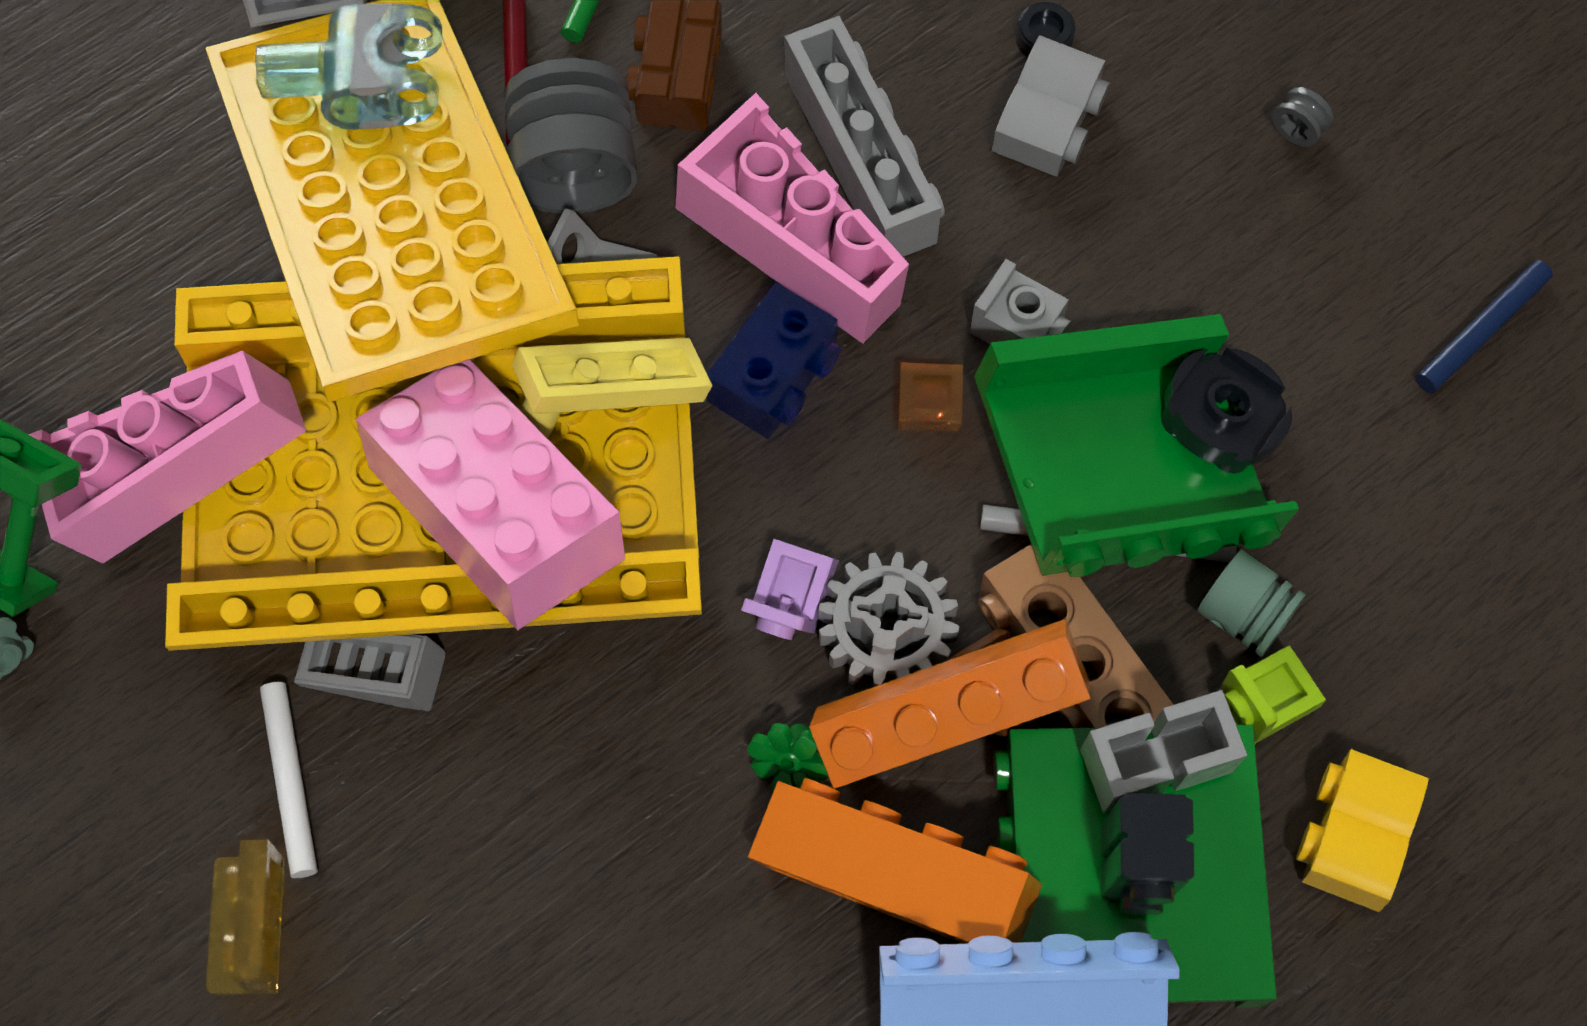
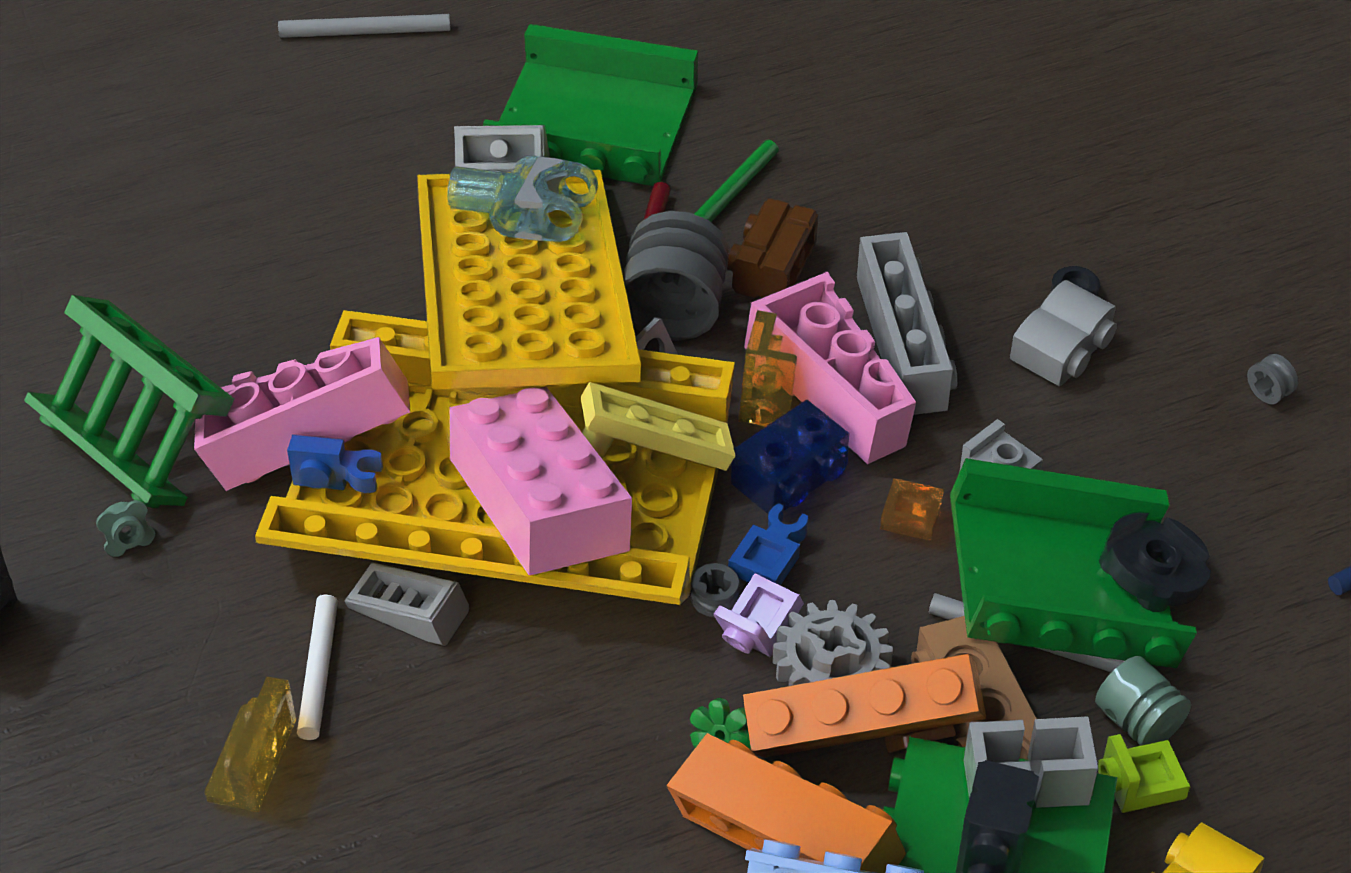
camera: 15 degrees right, 20 degrees down
(218, 515) = (327, 464): none -> blue plate
(711, 569) = (714, 575): none -> dark grey bush
(721, 268) = (767, 374): none -> clear yellow bracket
(778, 499) = (770, 551): none -> blue plate

